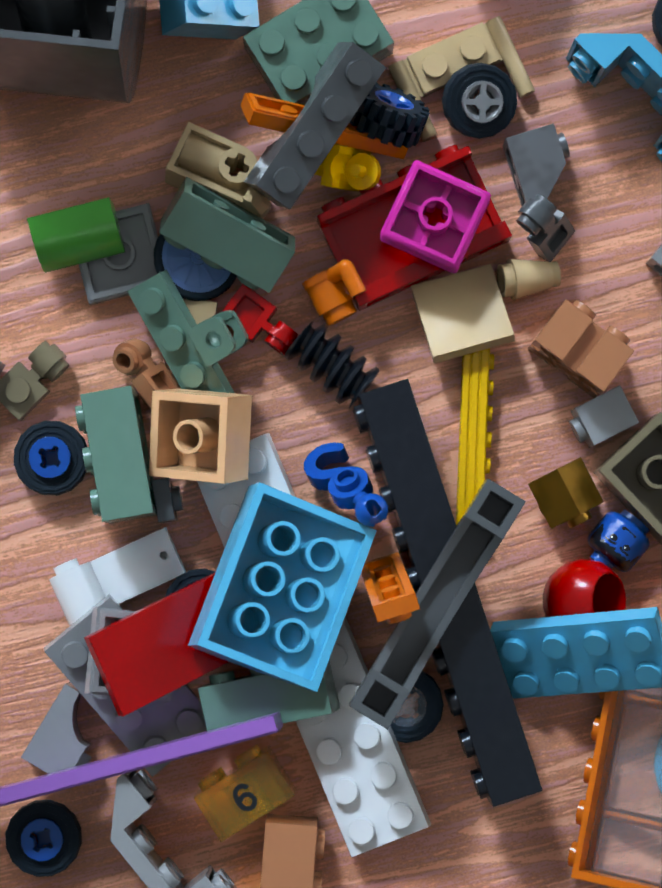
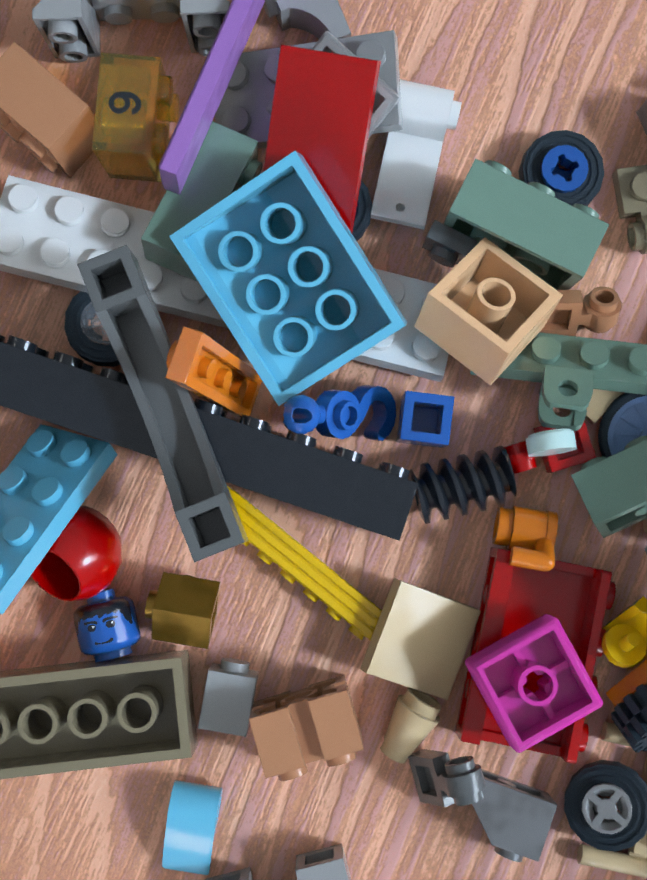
camera: 125 degrees right, 0 degrees up
(258, 323) = (551, 442): none -> light aqua tile
(306, 423) = (425, 419): none -> blue brick

